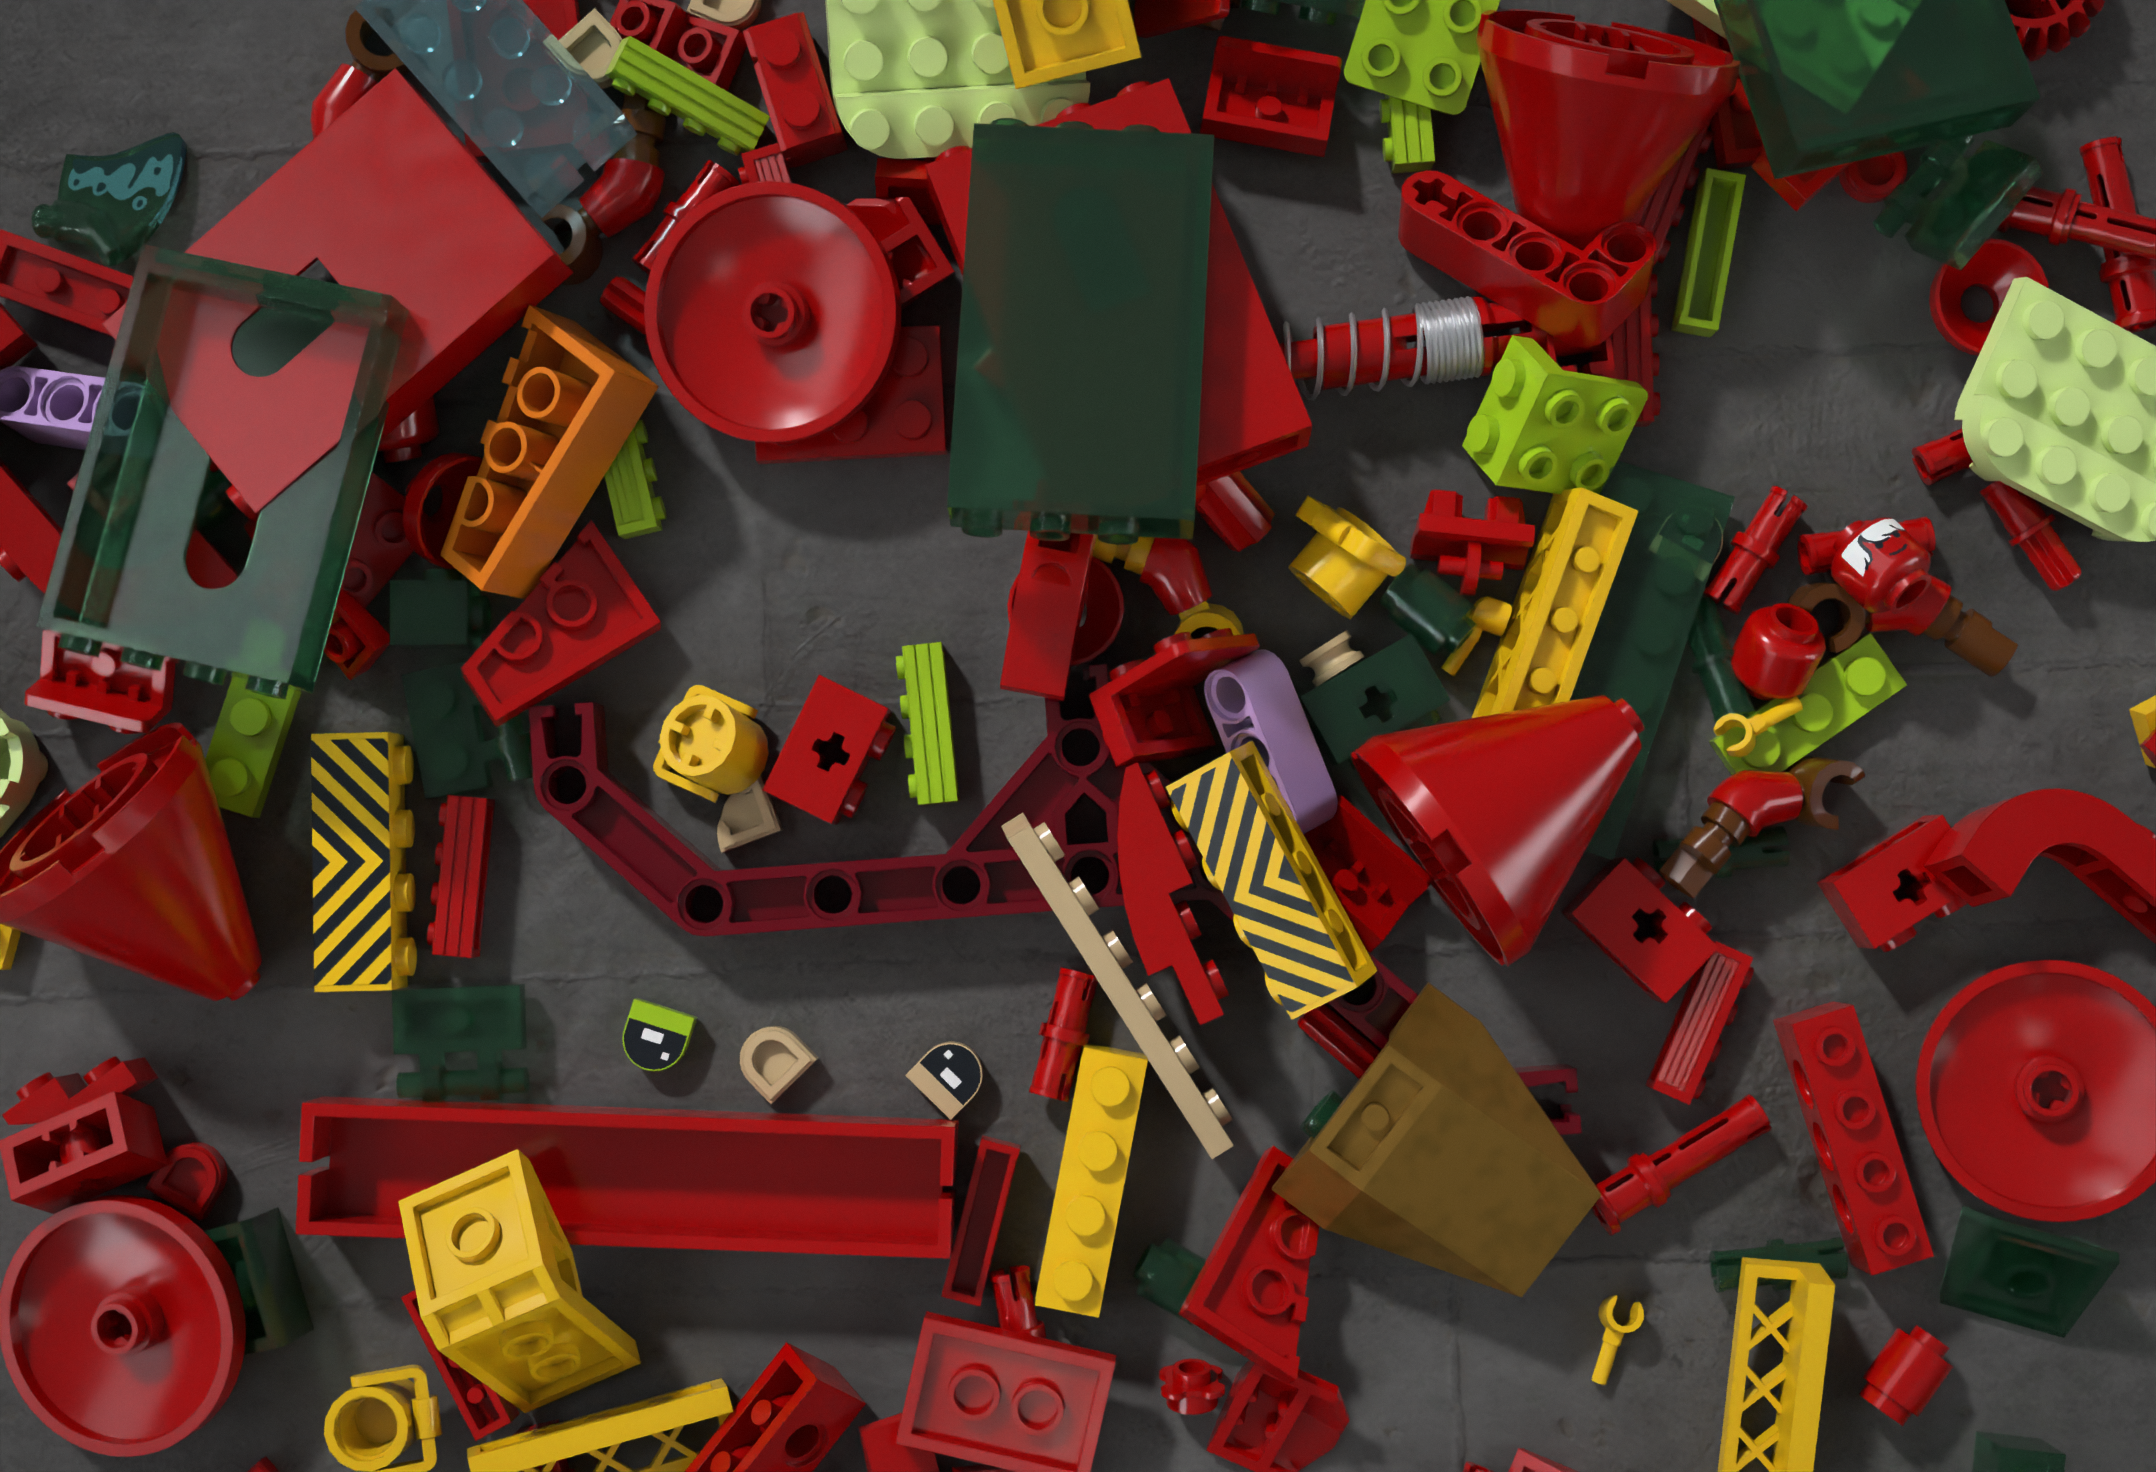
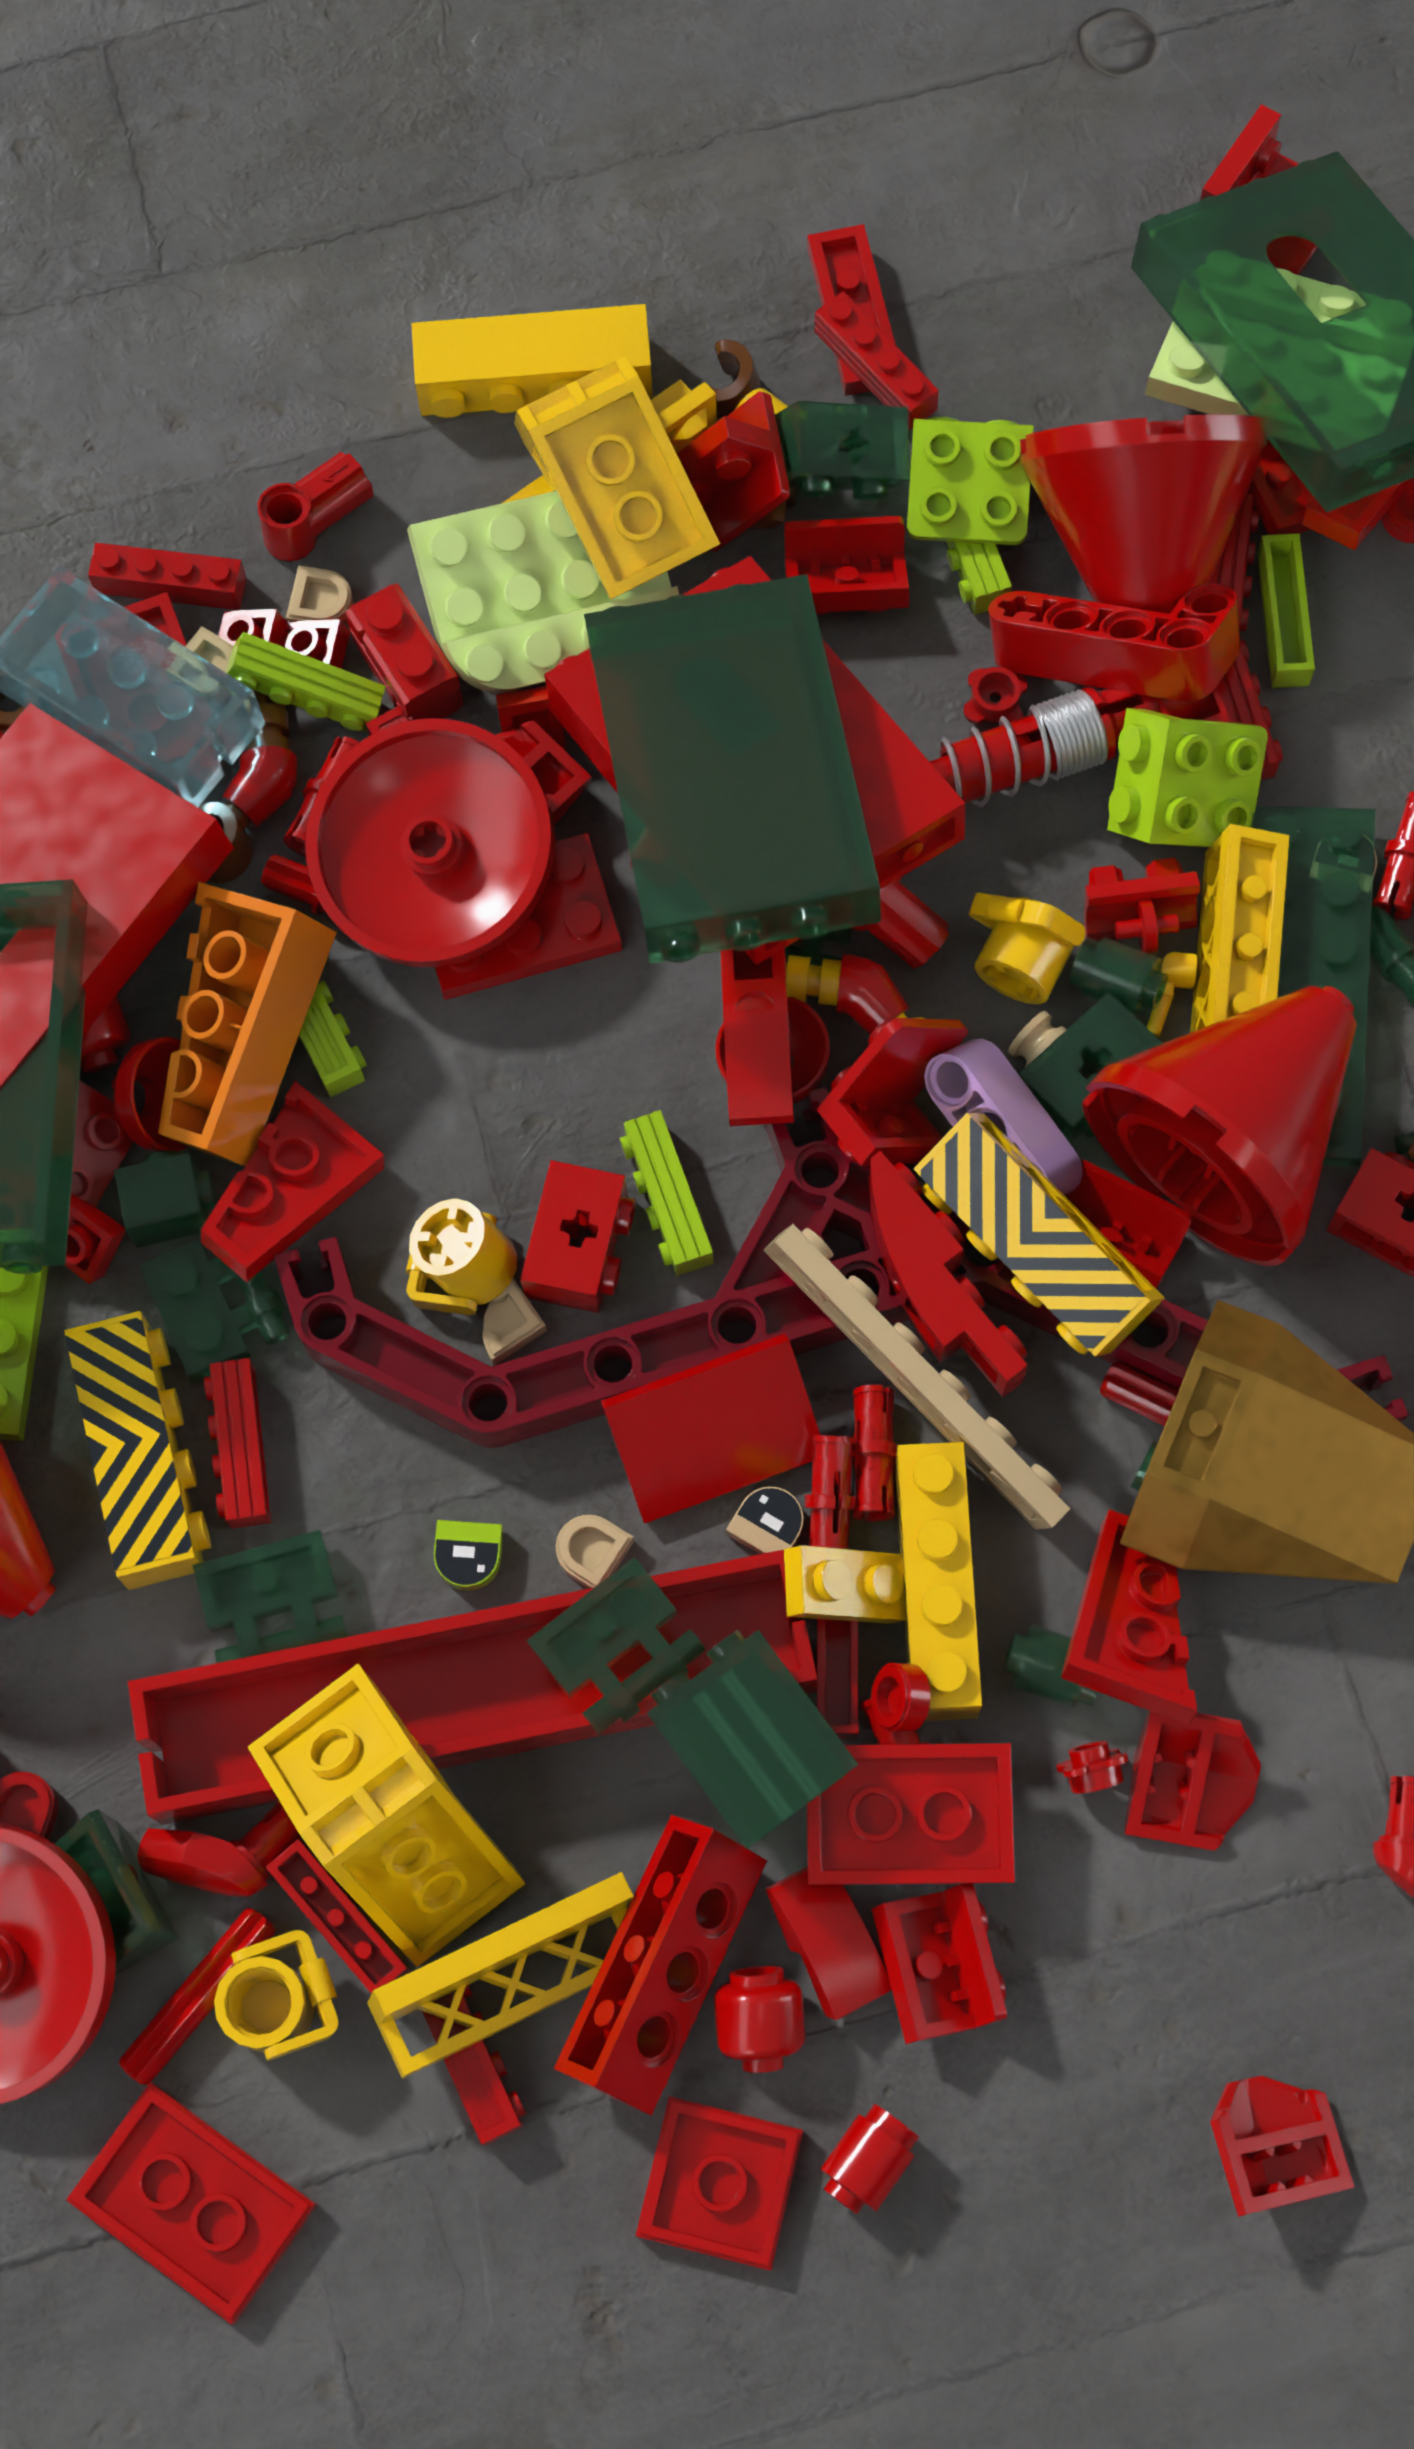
camera: 20 degrees left, 15 degrees down
(317, 1391) = (191, 2000): none -> red axle
(352, 1277) = (215, 1863): none -> red arm
(758, 1169) = (602, 1630): none -> clear green plate
(869, 1309) = (750, 1736): none -> clear green brick
(915, 979) = (713, 1428): none -> red tile
(998, 1171) = (844, 1584): none -> yellow plate
(1010, 1074) = (831, 1492): none -> red pin
(1024, 1292) = (900, 1697): none -> red tile
(1384, 257) = (999, 682): none -> red plate

